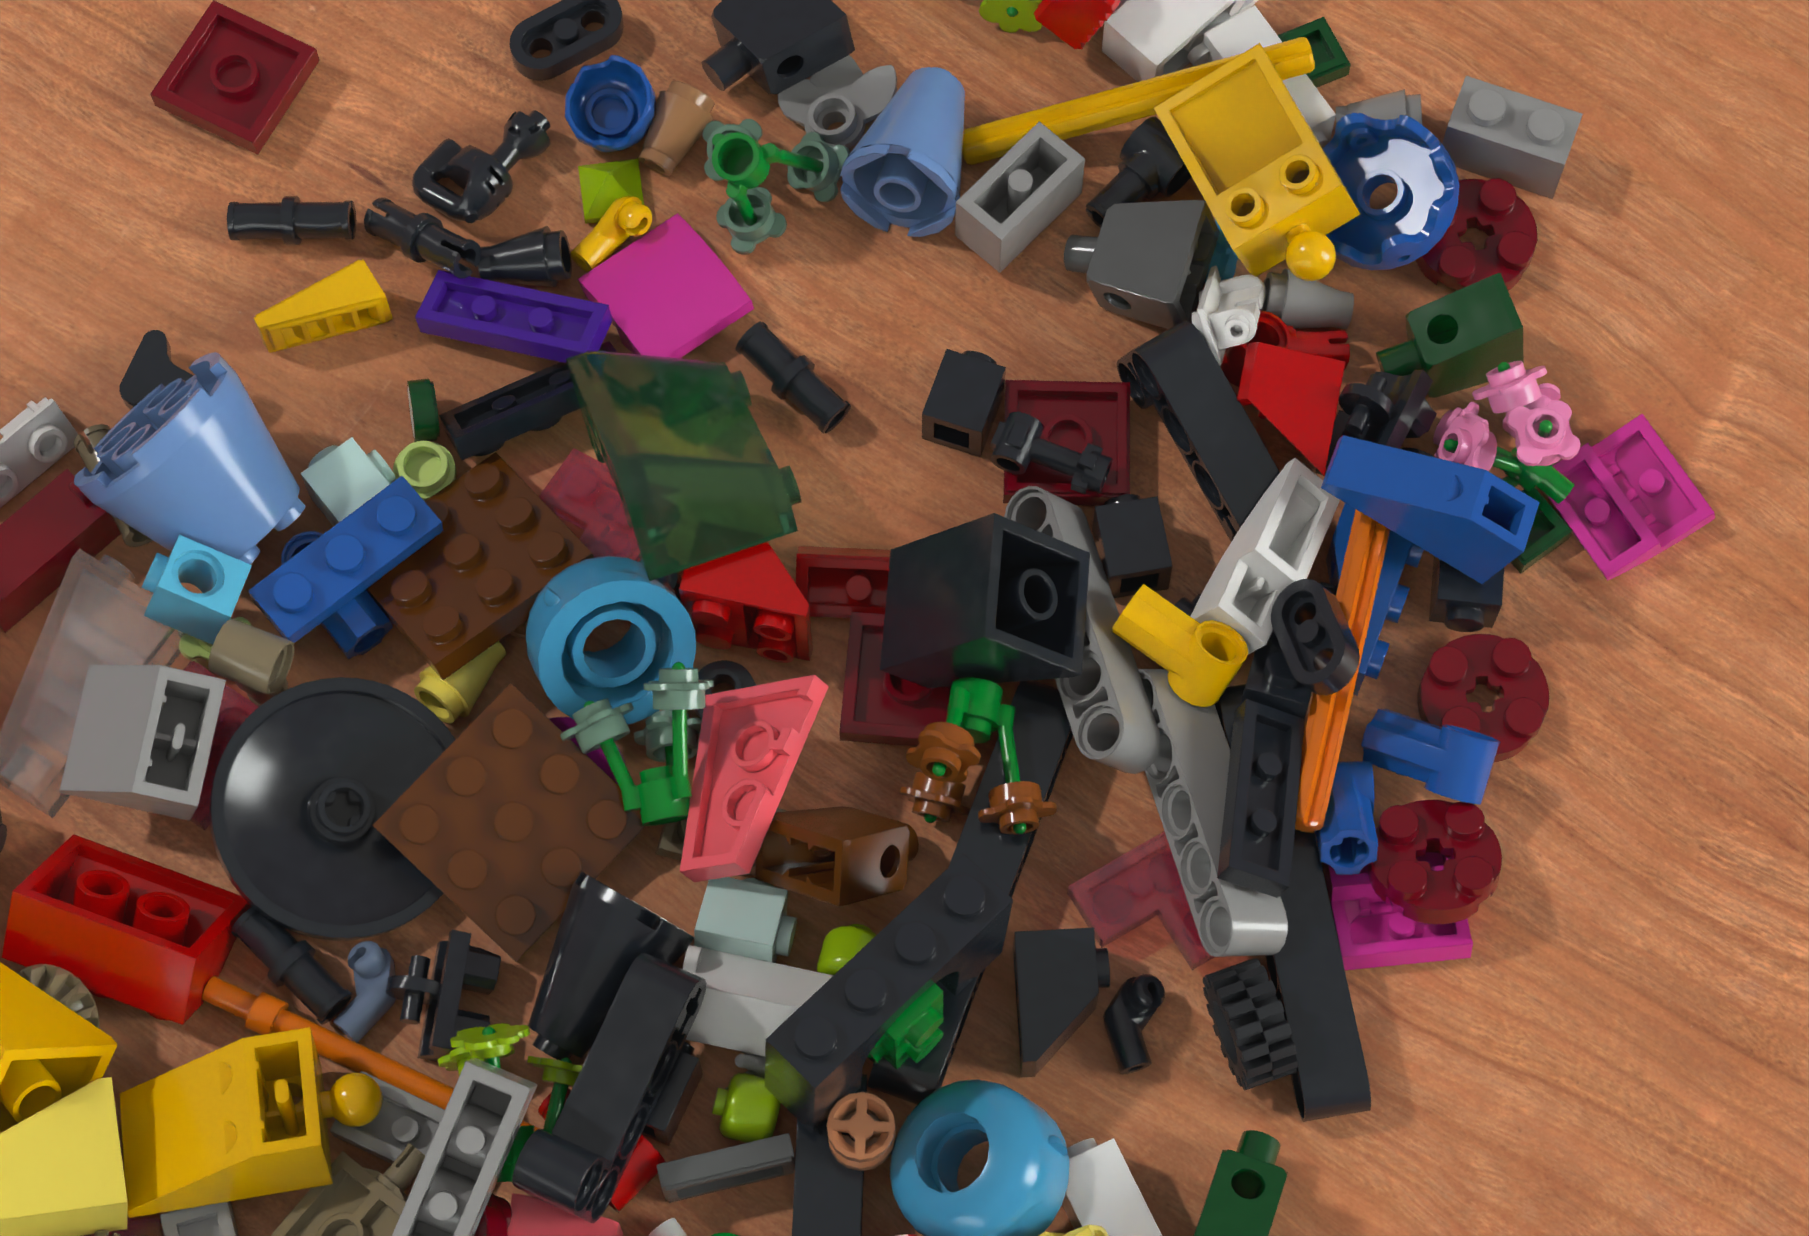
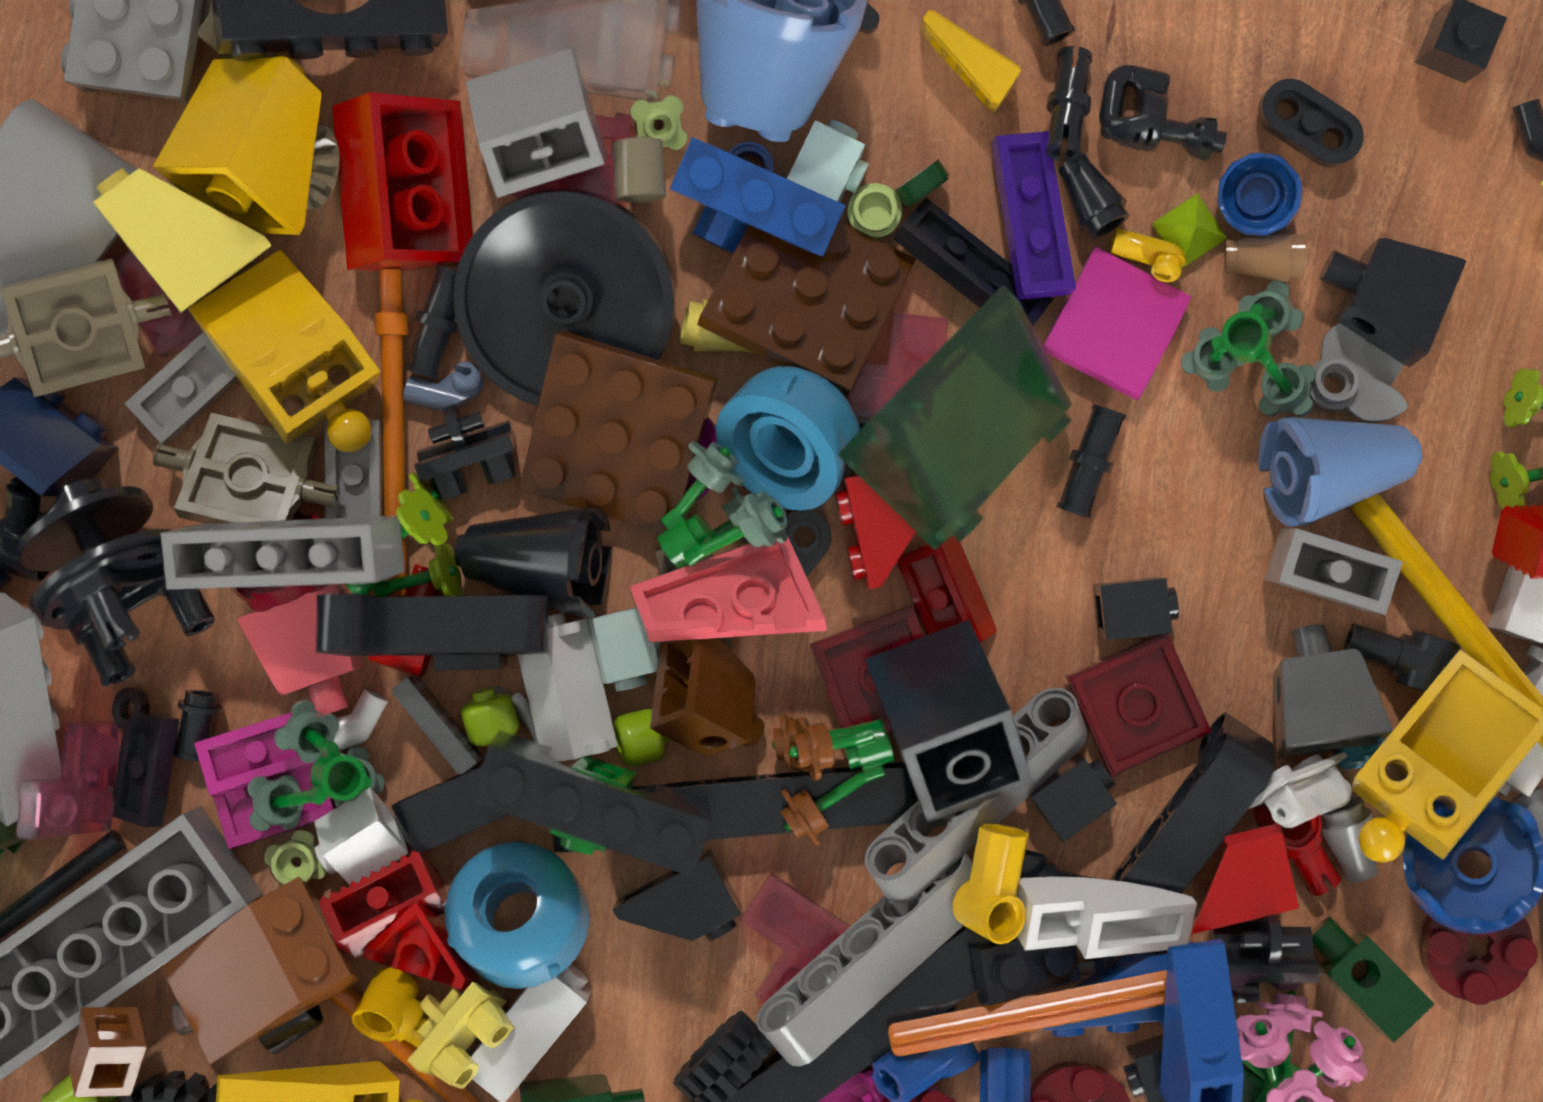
camera: 65 degrees right, 20 degrees up
(211, 571) = (693, 109): medium azure brick -> none
(861, 1117) = (487, 827): nougat wheel -> none
(1020, 443) = (1111, 674): black bar -> none
(1128, 1016) = (694, 960): black arm -> none
(1261, 799) = (894, 1004): black plate -> none
(1315, 637) = (1041, 993): black plate -> none

